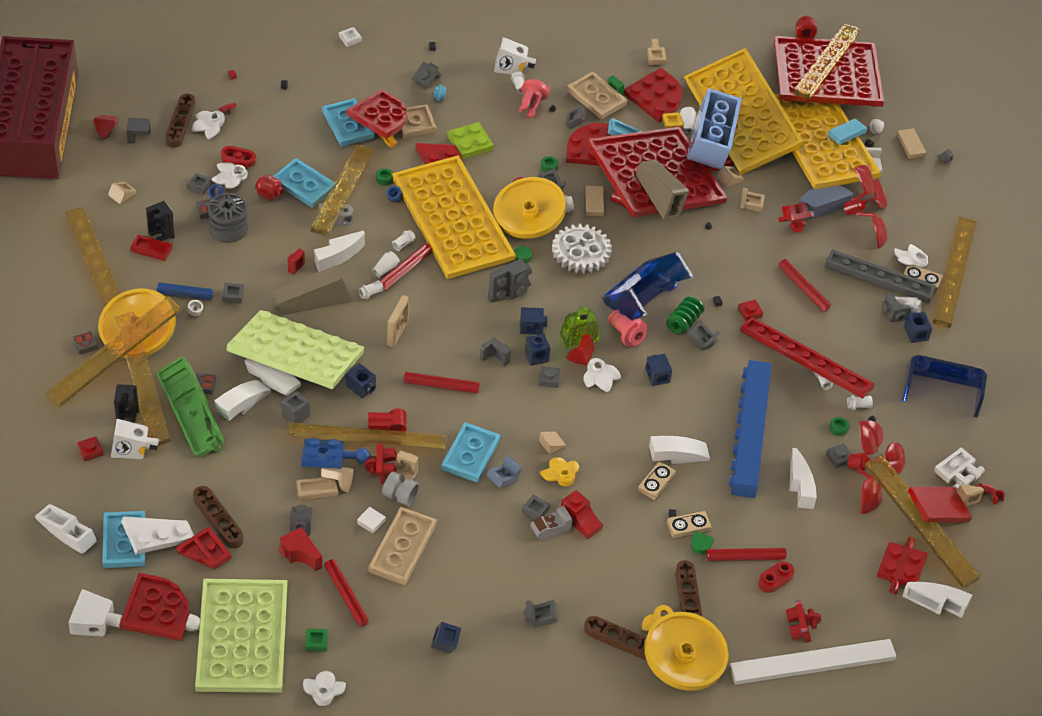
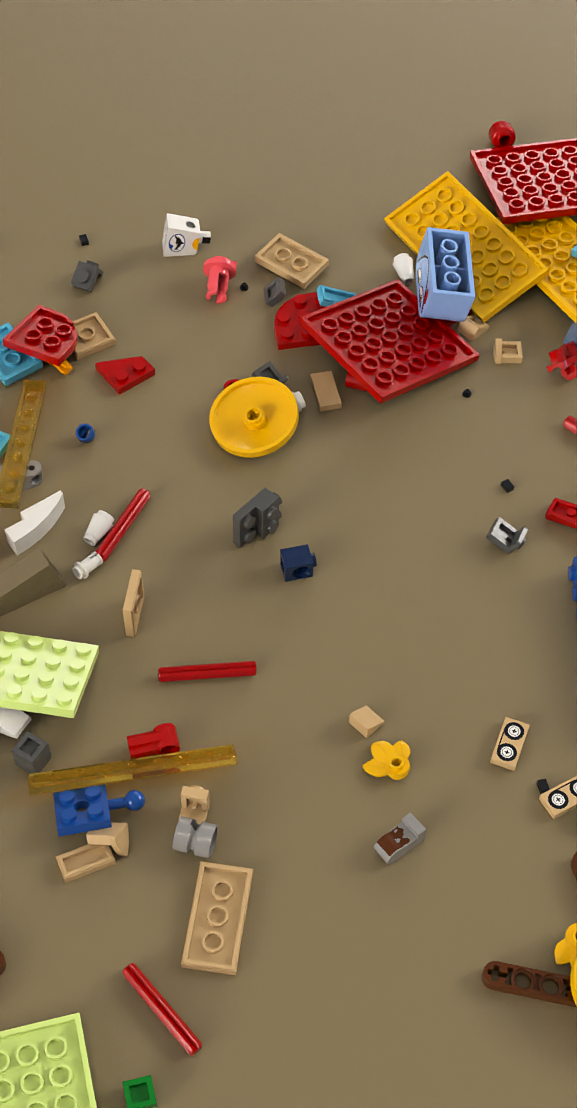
camera: 10 degrees left, 5 degrees up
(299, 548) = (84, 958): red arch -> none
(301, 517) = (75, 914): dark grey bracket -> none
(361, 380) = (102, 685): dark blue brick -> none
(371, 520) = (167, 890): white tile -> none
(378, 463) = (166, 814): red hips -> none
(384, 177) = (68, 413): green tile -> none
(403, 240) = (115, 486): white pin -> none
(439, 93) = (107, 295): medium azure plate -> none
(446, 637) = (312, 1048): dark blue brick -> none
(453, 217) = (165, 448): yellow plate -> none
(470, 140) = (159, 345): lime plate -> none
(471, 452) = (270, 761): medium azure plate -> none
(496, 350) = (264, 611): dark grey bracket -> none
(506, 473) = (321, 780): sand blue bracket -> none
(518, 79) = (195, 260): white pin -> none
(524, 253) = (260, 477): green tile -> none
(535, 507) = (373, 820): dark grey plate -> none
(537, 349) = (314, 600): dark blue brick -> none
(541, 614) = (424, 975): dark grey bracket -> none
(549, 163) = (260, 356): green tile -> none
(549, 377) = (338, 632): dark grey plate -> none
(577, 324) = (358, 560): clear neon green torso -> none
(581, 248) = (329, 455): white gear -> none
(582, 514) = (434, 816): red arch -> none
(584, 351) = (371, 592): red tile -> none
(601, 377) = (401, 618): white plate -> none
(616, 84) = (311, 243): green plate -> none
(632, 331) = (422, 550): coral piece -> none
(646, 283) = (416, 483): clear blue windscreen -> none
(656, 54) = (343, 198): tan plate -> none
(656, 94) = (358, 245): red plate -> none
(658, 369) = (467, 592): dark blue brick -> none
(663, 189) = (408, 361): dark tan slope -> none
(672, 120) = (387, 273): yellow plate -> none
(678, 449) = (524, 696): white slope -> none
(685, 315) = (477, 514): green piece -> none
(750, 309) = (549, 489): red plate -> none
(826, 61) = (540, 169): clear yellow tile -> none

